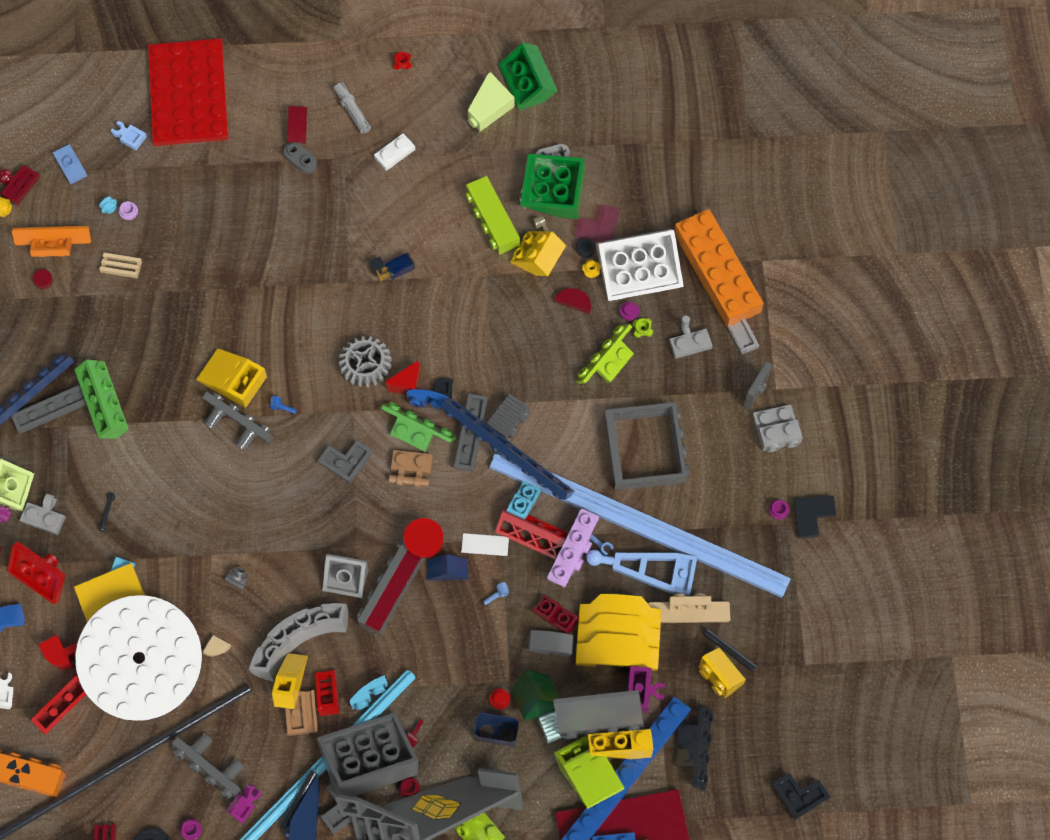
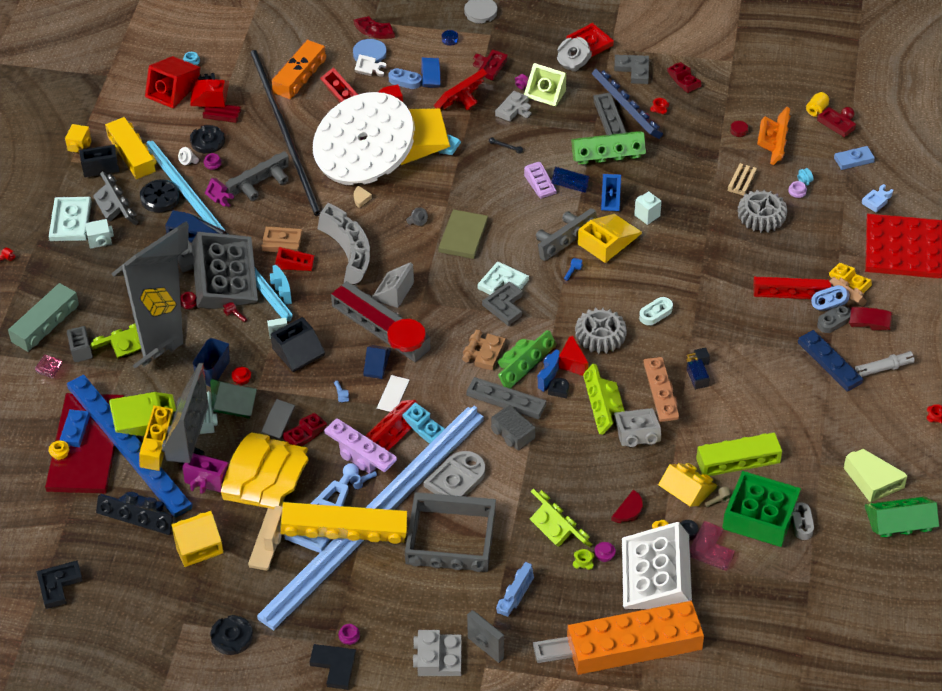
camera: 105 degrees right, 20 degrees down
(13, 647) = (405, 78): none -> medium blue plate
(16, 358) = (659, 106): none -> red plate
(149, 462) = (535, 170): none -> lavender slope
(153, 445) = (570, 179): none -> clear blue tile
(163, 229) = (762, 211): none -> light grey gear
(170, 386) = (611, 192): none -> blue slope
(185, 346) = (647, 207): none -> light aqua brick
(245, 150) = (848, 274): none -> yellow slope
(252, 525) = (463, 234): none -> olive tile
(261, 152) = (855, 295): none -> medium nougat plate
(272, 197) = (788, 287): none -> red fence
(283, 159) = (831, 298): none -> medium blue plate
(289, 681) = (308, 227): yellow slope -> none
(305, 475) = (499, 276): none -> light aqua tile
(327, 317) = (654, 311): none -> light aqua plate
(354, 155) = (830, 360): none -> dark blue plate
(394, 152) = (829, 392): white plate -> none
(429, 678) = (276, 324): none -> light aqua plate
(437, 288) = (661, 389): none -> nougat bracket
(451, 344) = (603, 398): none -> lime bracket
(452, 650) = (297, 344): none -> black slope
(481, 306) = (637, 427): none -> light grey plate
(512, 453) = (474, 411): dark blue plate -> none
(577, 459) = (456, 476): none -> light grey tile
(674, 536) = (343, 522): none -> yellow brick
(689, 342) = (557, 599): light grey plate -> none
(696, 376) = (516, 591): none -> medium blue hinge
(730, 650) = (220, 561): black bar -> none
(807, 614) = (231, 635): none -> black tile

